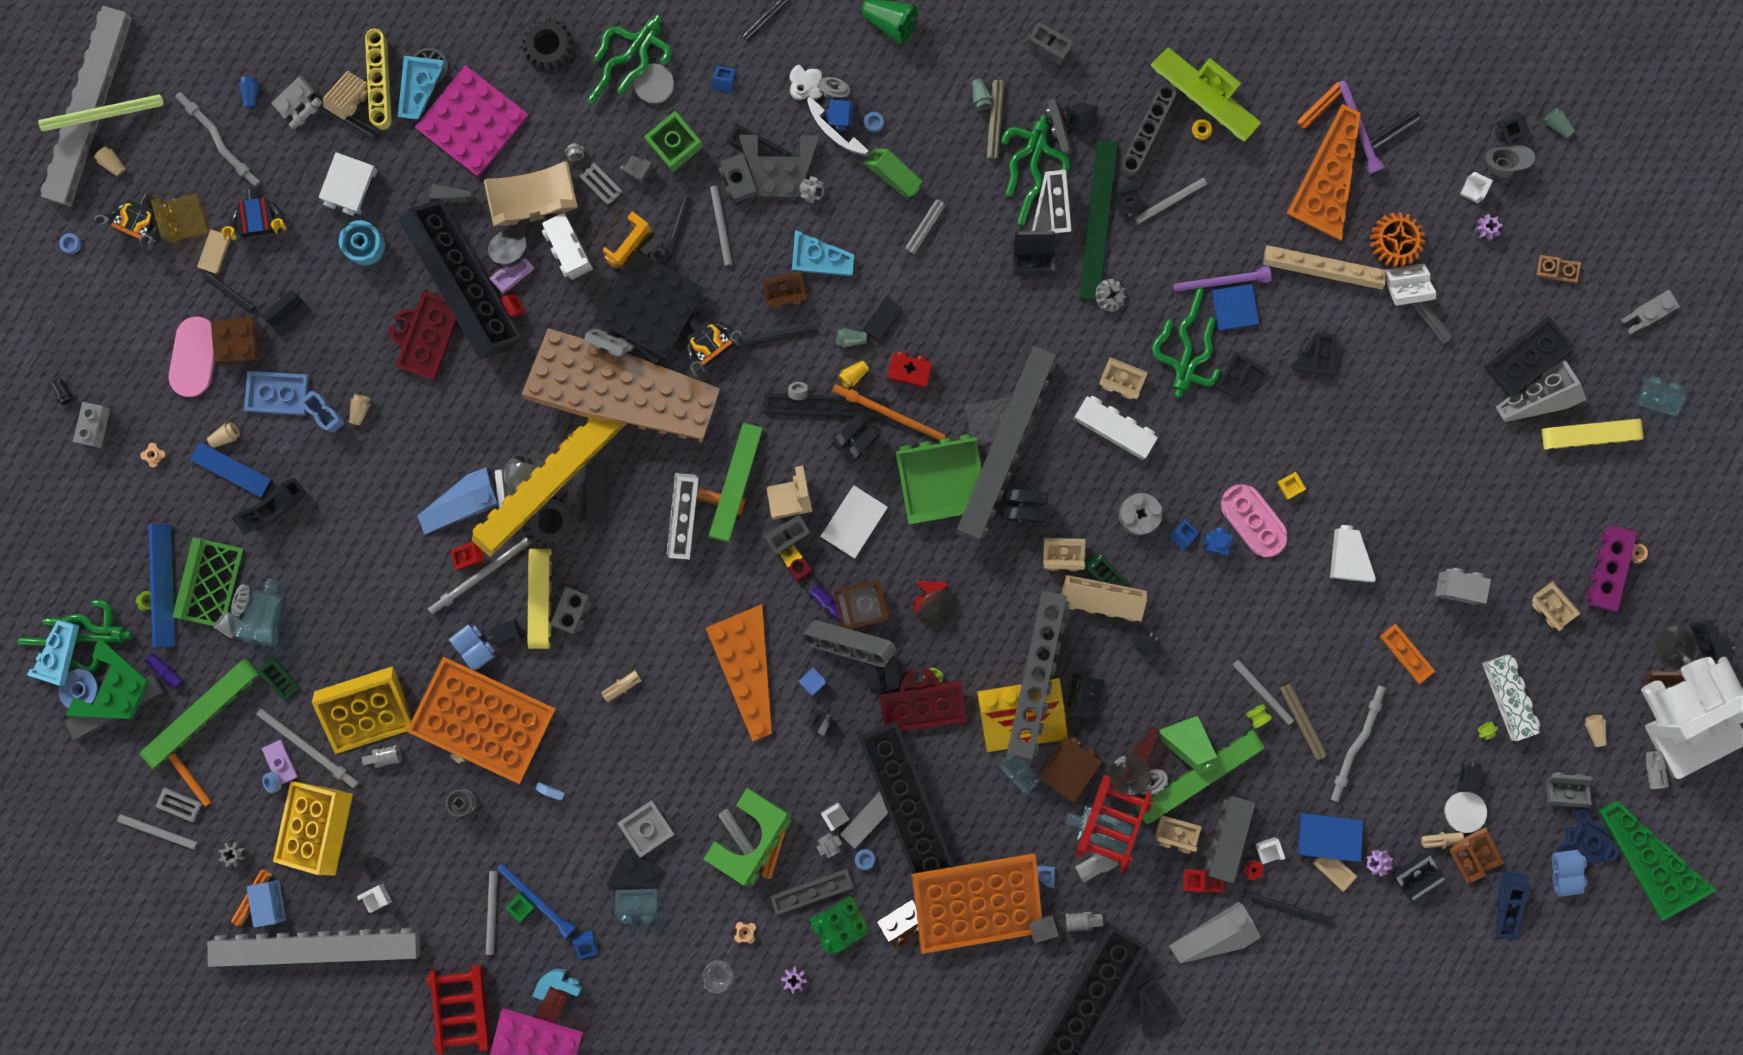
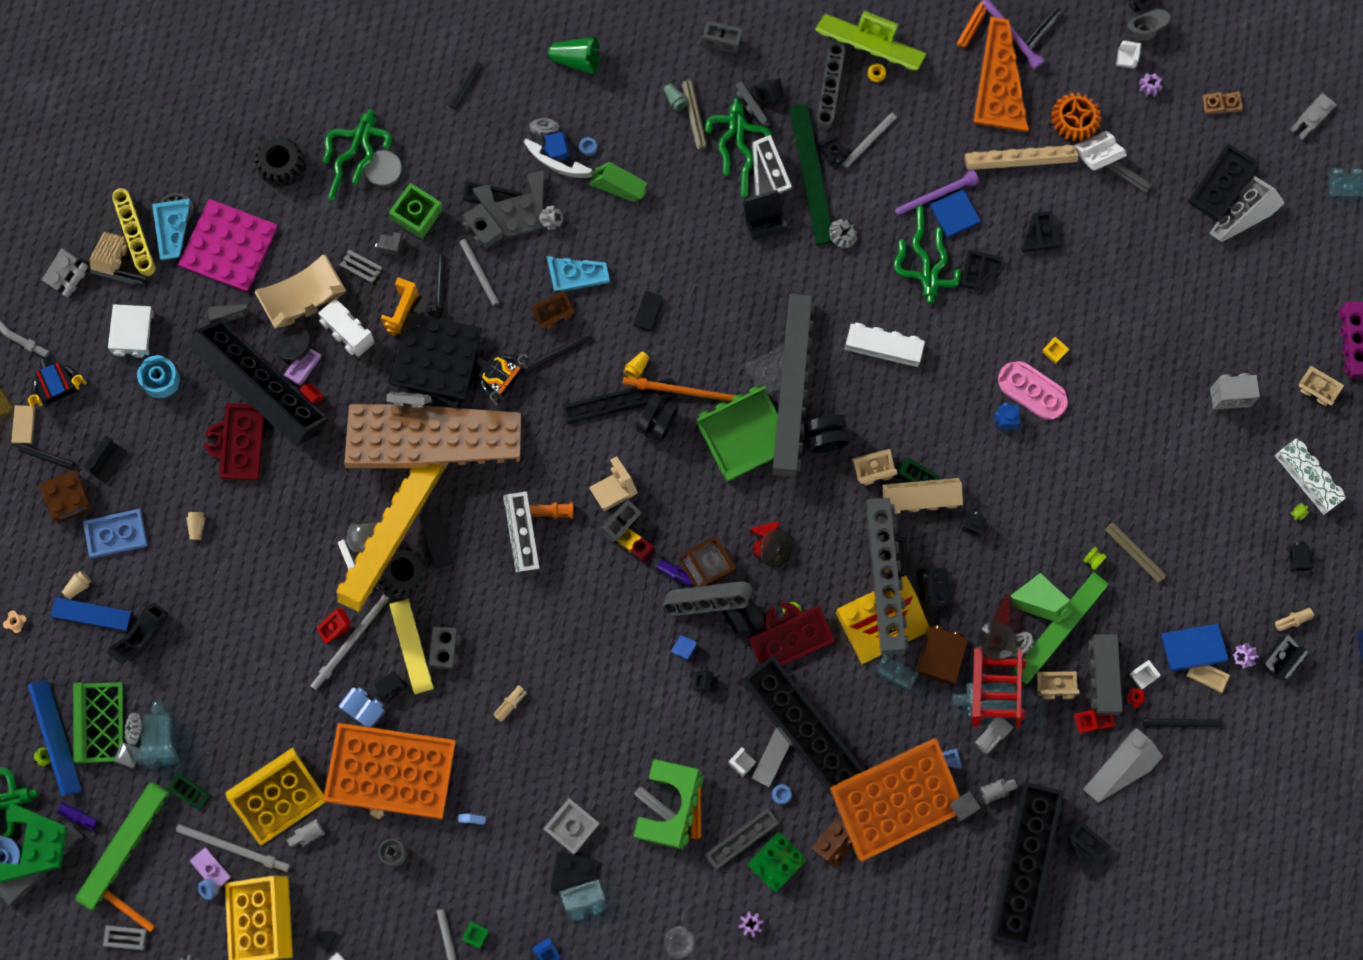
camera: 20 degrees left, 10 degrees down
(192, 357) = (28, 523): bright pink tile -> none
(249, 90) = (17, 273): blue cone -> none
(323, 414) = (165, 536): medium blue brick -> none
(465, 499) = (316, 578): medium blue wedge -> none
(565, 927) = (522, 941): blue piece -> none
(574, 149) = (329, 243): light grey plate -> none
(723, 79) = (443, 147): blue slope -> none
(735, 482) = (560, 490): bright green tile -> none
(742, 656) = (614, 646): orange wing -> none
(749, 937) = (691, 900): light nougat plate -> none
(798, 391) = (592, 394): light grey tile -> none
(807, 80) = (518, 128): white plate -> none
(829, 845) = (745, 789): light grey gear -> none
(848, 337) = (623, 335): sand green cone -> none
(854, 521) = (677, 494): white tile -> none
(917, 378) = (677, 352): red brick -> none
(925, 226) = (661, 221): light grey axle -> none
(1122, 378) = (877, 300): tan bracket -> none
(1151, 510) = (940, 408): light grey brick -> none
(1184, 534) = (975, 420): blue slope -> none
(1263, 692) = (1091, 537): light grey bar -> none
(1341, 780) = (1187, 593): light grey bar -> none
(1350, 556) = (1128, 396): white slope -> none
(1407, 654) = (1206, 466): orange tile -> none
(1465, 812) = (1305, 589): white tile -> none
(1476, 855) = (1328, 623): dark orange slope -> none
(1592, 434) = (1300, 230): light yellow beam -> none

